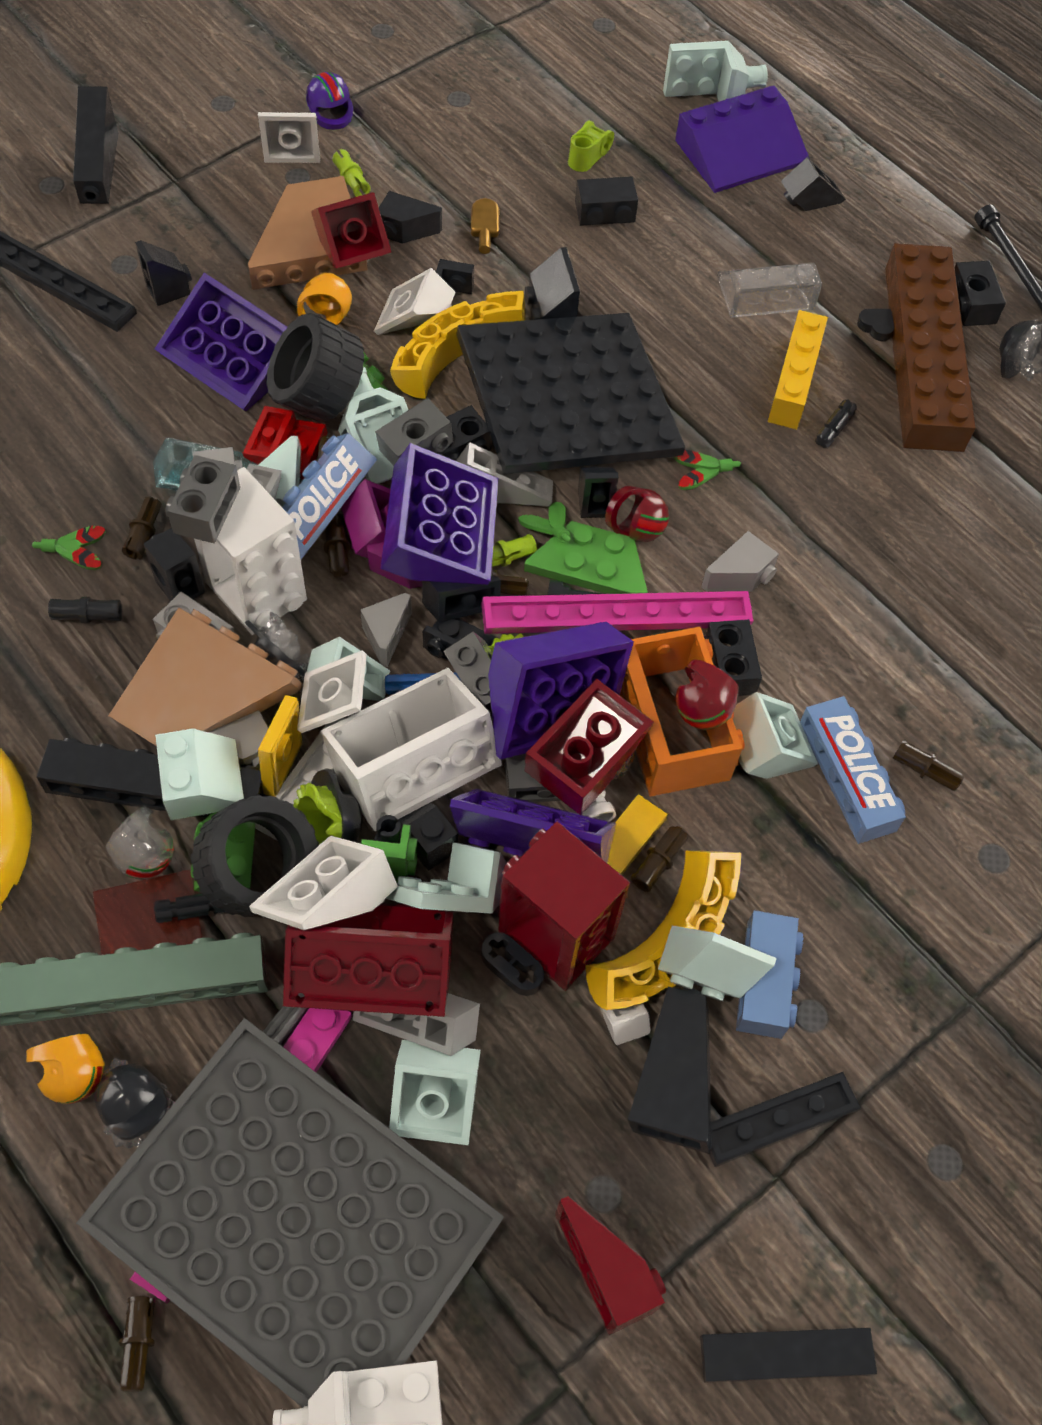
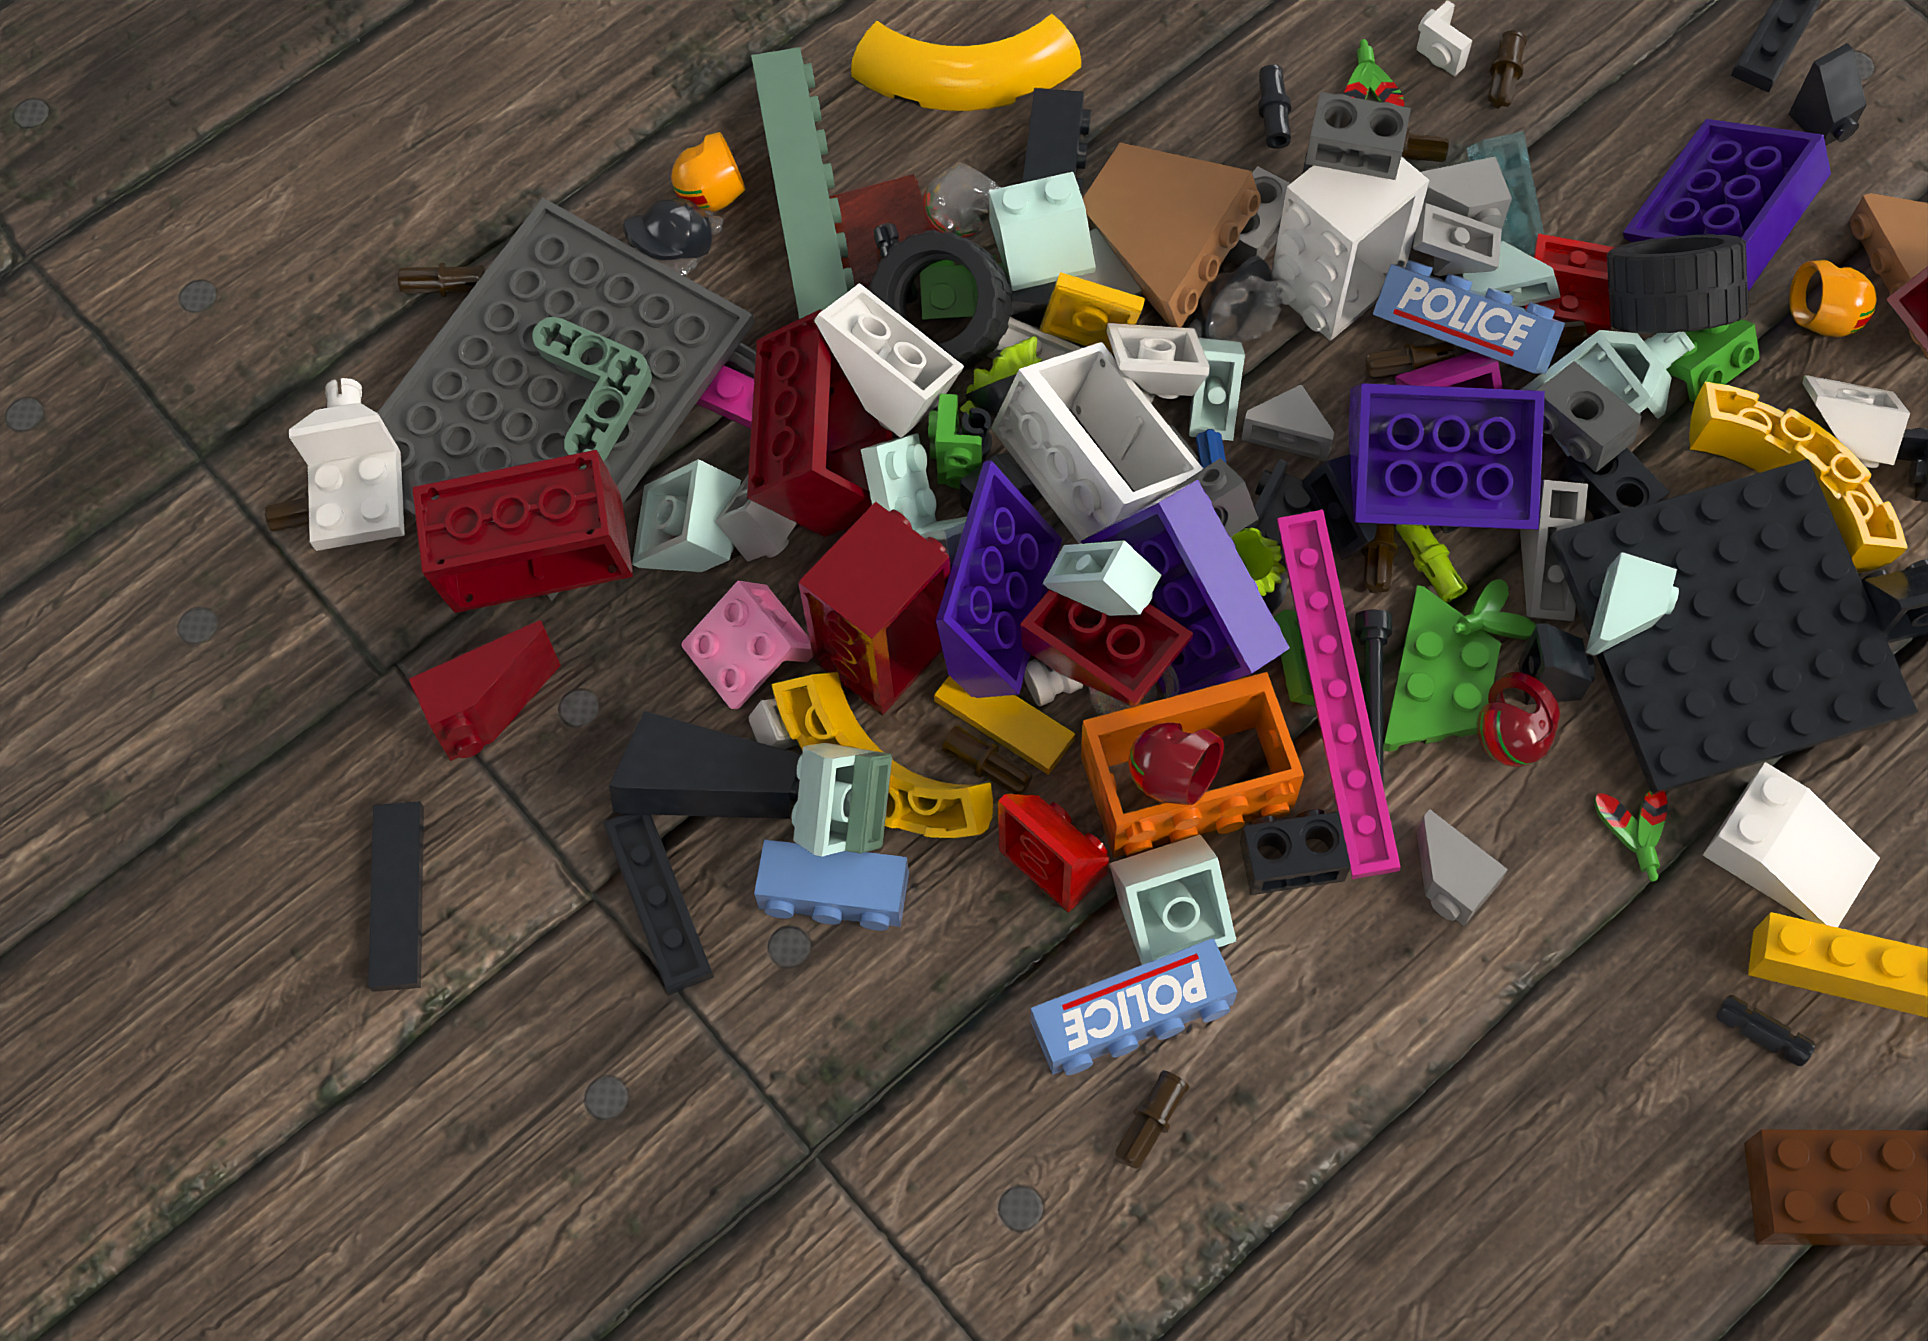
camera: 95 degrees right, 5 degrees up
(50, 491) = (1441, 41): none -> white bracket
(84, 455) = (1507, 68): none -> dark brown axle
(288, 1153) = (606, 375): none -> sand green beam
(472, 1216) = (522, 531): none -> dark red hose
(556, 730) = (1104, 577): none -> light aqua slope
(556, 1040) = (745, 641): none -> bright pink bracket
(570, 428) = (1631, 600): none -> light aqua slope
(699, 922) = (868, 802): none -> sand green tile
(716, 393) = (1792, 848): none -> white slope
(743, 805) = (1050, 848): none -> red slope

